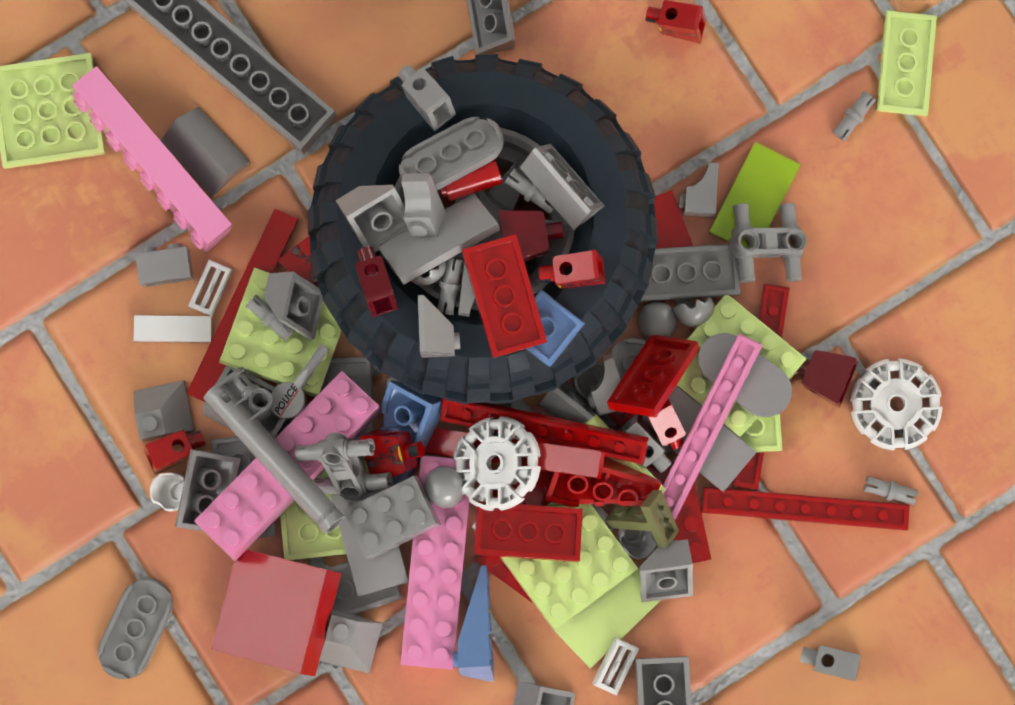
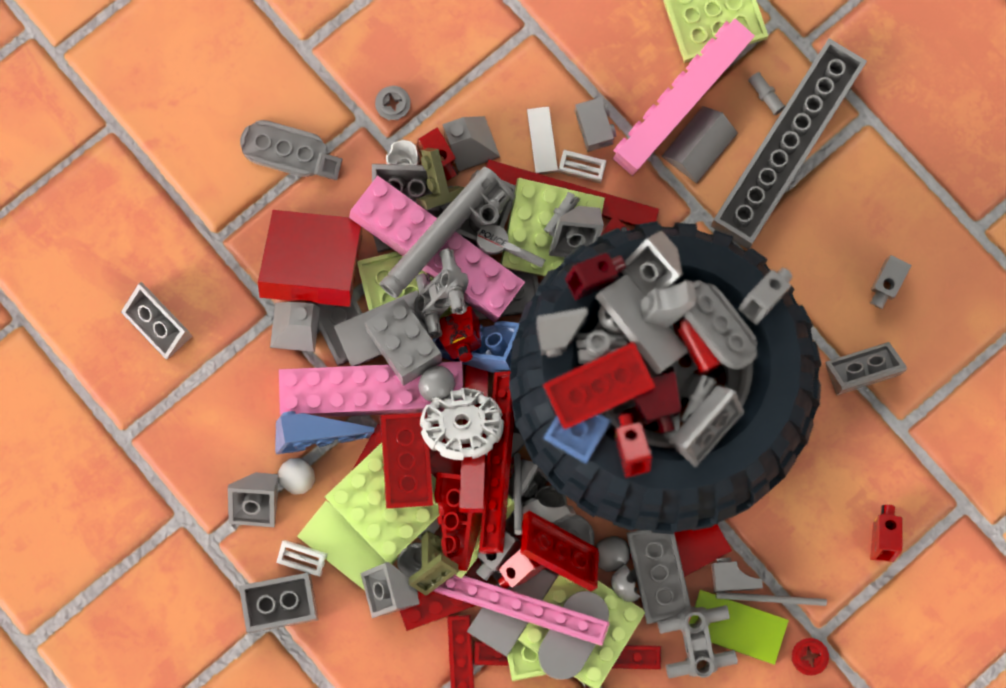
camera: 85 degrees right, 5 degrees down
(91, 487) = (383, 100): none -> light grey gear
(157, 66) = (766, 93): none -> light grey pin
(166, 579) = (328, 166): none -> light grey tile
(212, 454) = (436, 181): none -> olive bracket
(455, 289) = (598, 343): none -> light grey tile
(521, 661) = (296, 476): none -> white hair
(584, 412) = (517, 494): none -> light grey axle
(729, 156) = (771, 598): none -> light grey axle
(805, 117) = (819, 663): none -> red gear

